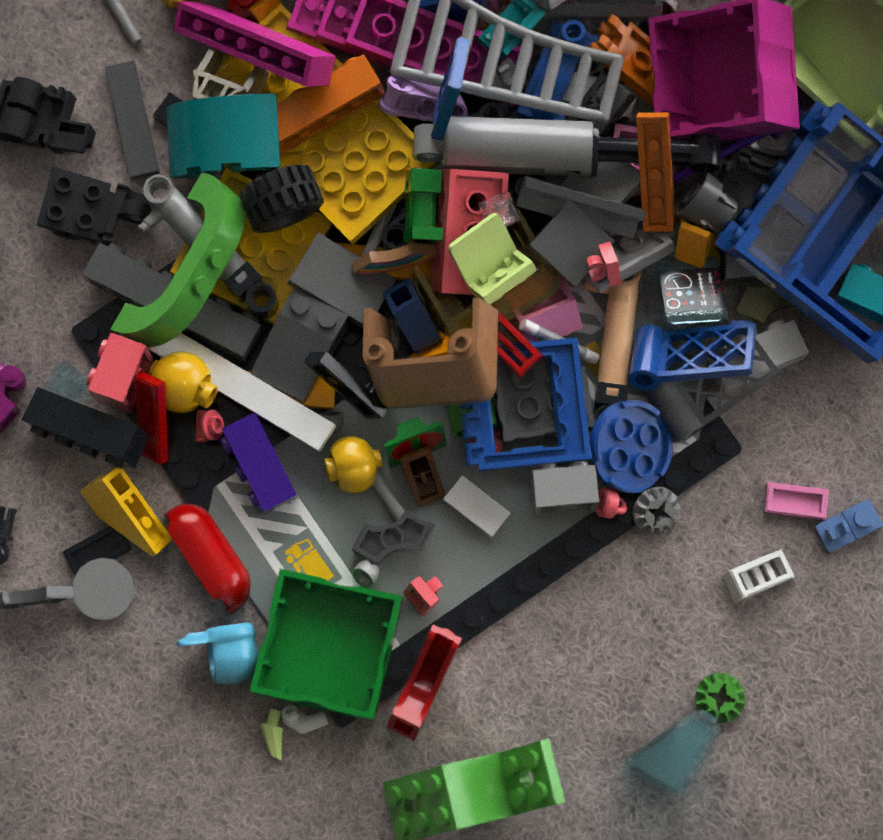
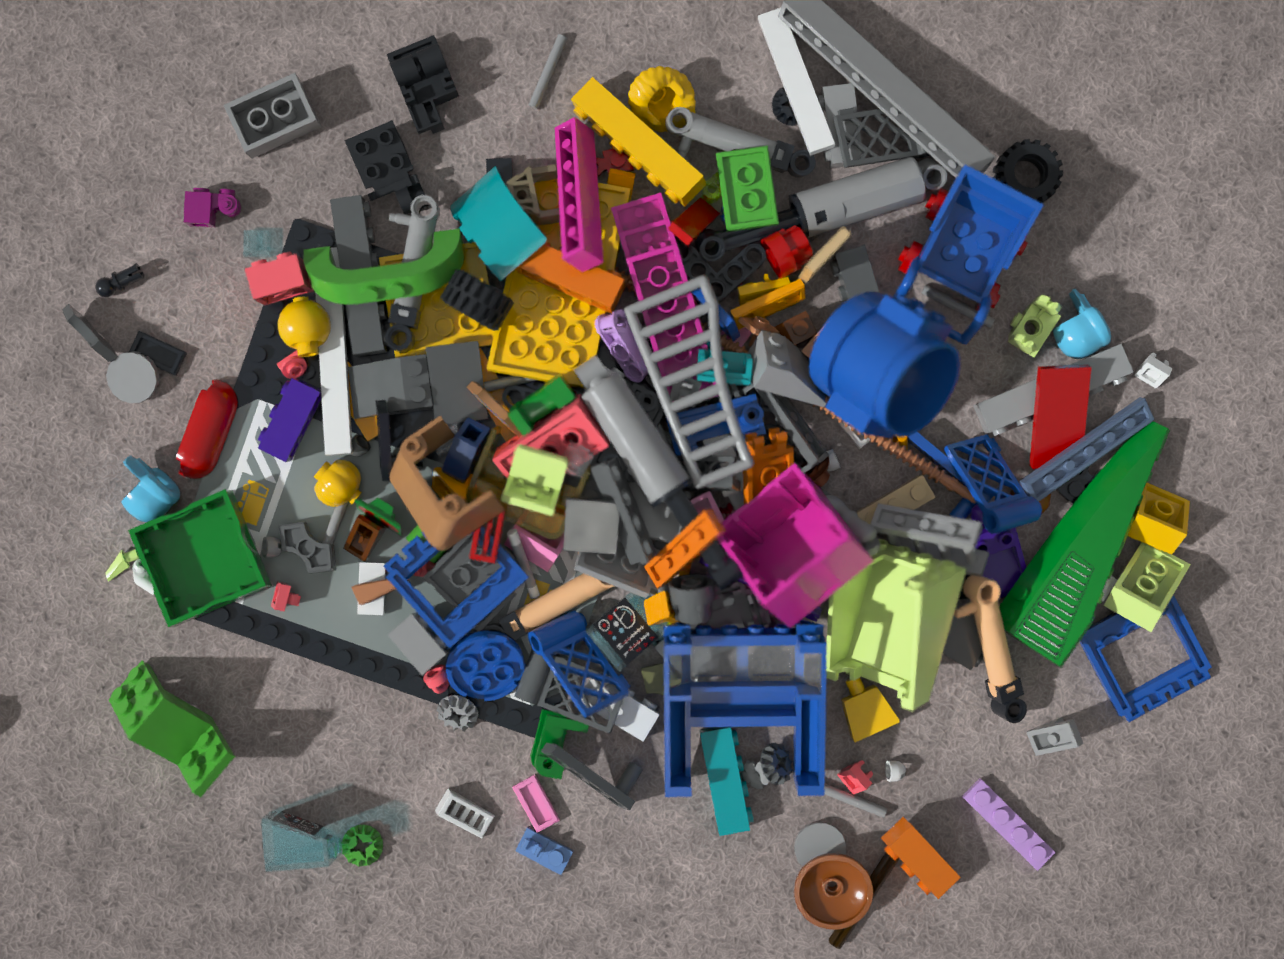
camera: 50 degrees right, 10 degrees up
(85, 427) = (227, 284): black brick -> none
(124, 509) = (194, 352): yellow slope -> none
(132, 120) = (473, 147): dark grey tile -> none
(152, 416) = (265, 324): red tile -> none
(424, 682) = (220, 642): red arch -> none
(450, 88) = (631, 363): blue tile -> none
(480, 501) = (371, 591): none -> nougat slope
(605, 265) = (590, 560): coral tile -> none
(747, 441) = (553, 730): none -> green piece
(836, 418) = (616, 794): none -> dark grey piece

